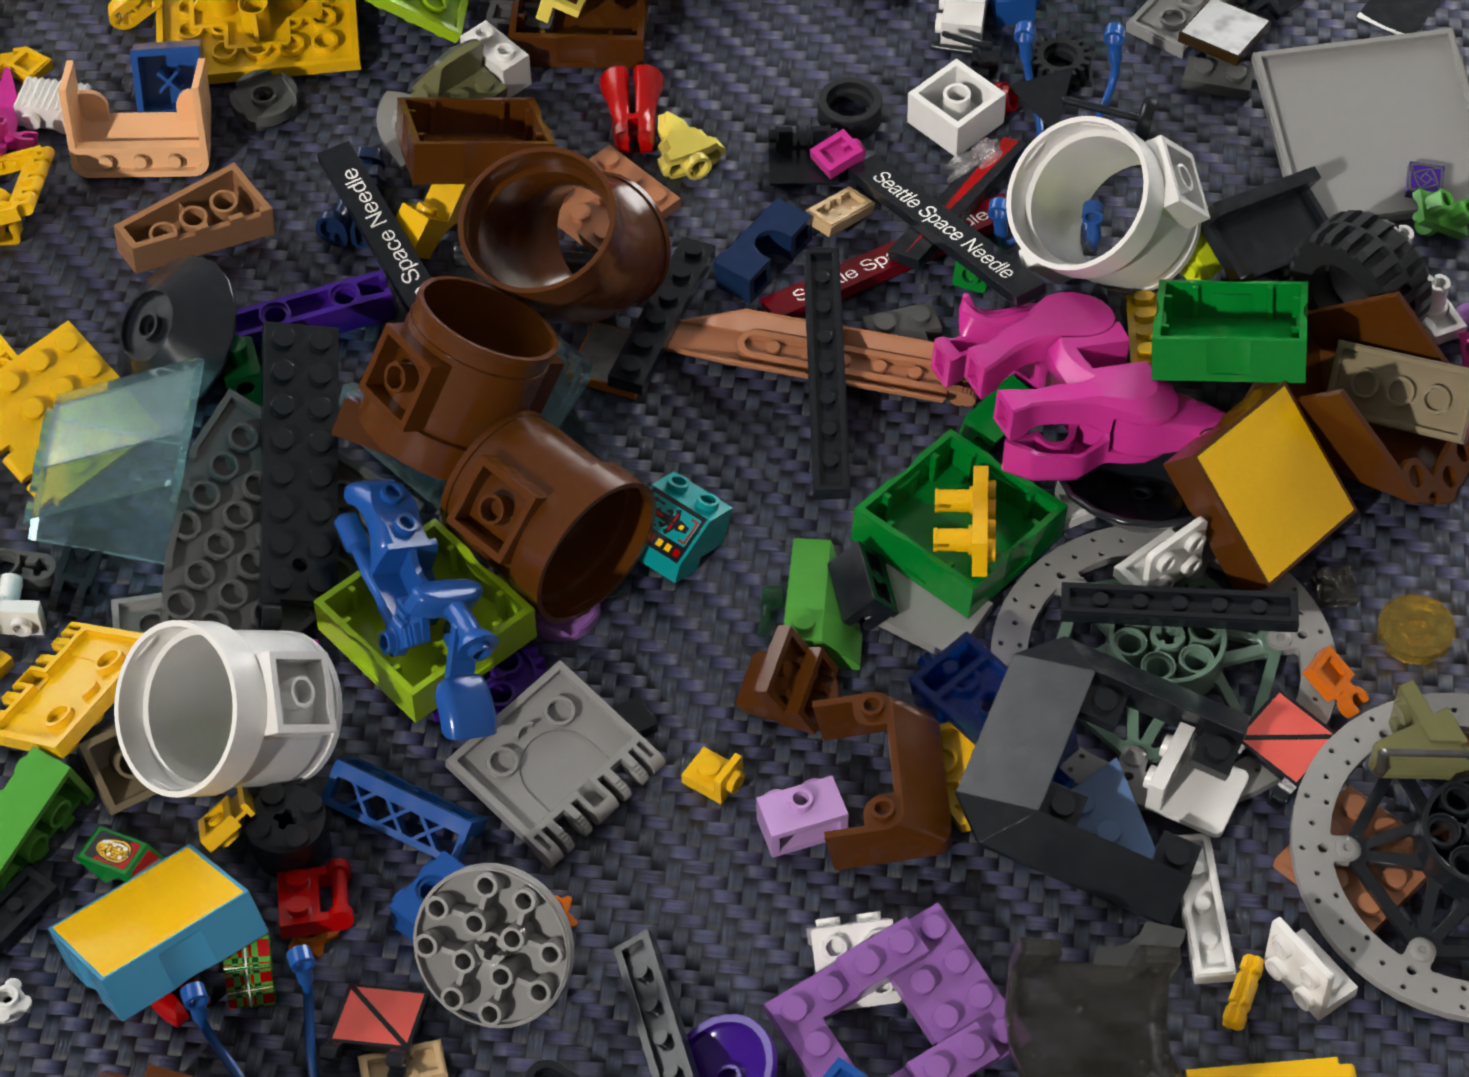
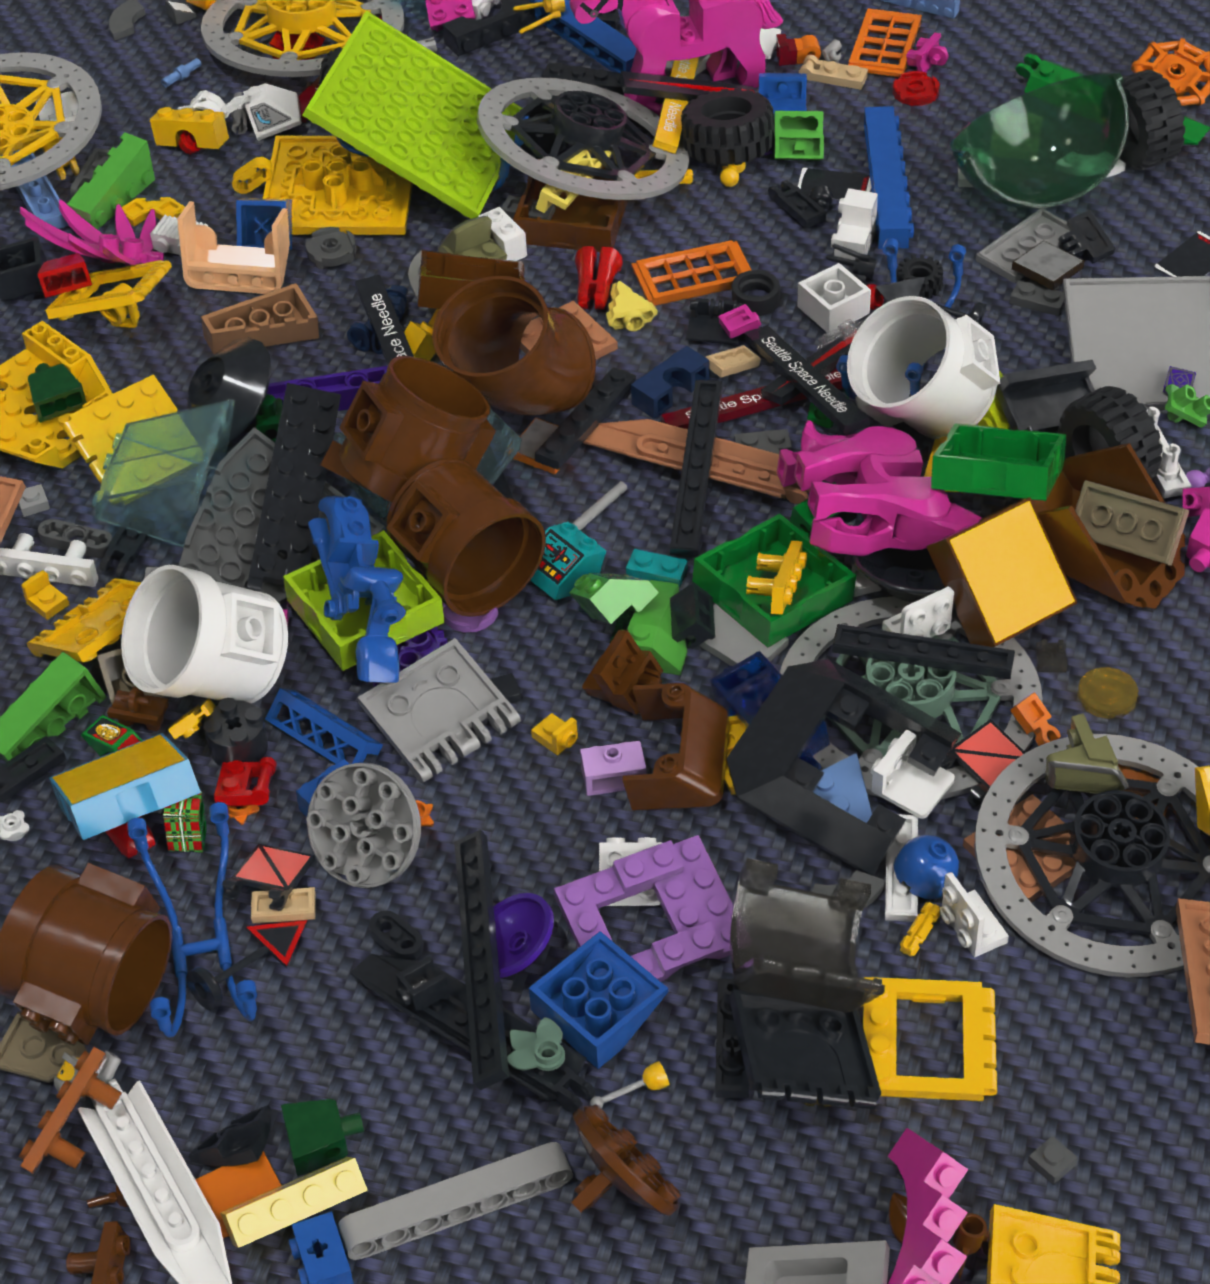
camera: 10 degrees right, 5 degrees down
(145, 810) = (138, 708): none -> reddish brown hips
(703, 109) = (648, 284): none -> orange piece
(705, 438) = (600, 505): none -> light grey bar
(754, 570) = (609, 595): none -> piece
(798, 519) = (656, 567): none -> teal plate
(1237, 905) = (924, 865): none -> blue cylinder

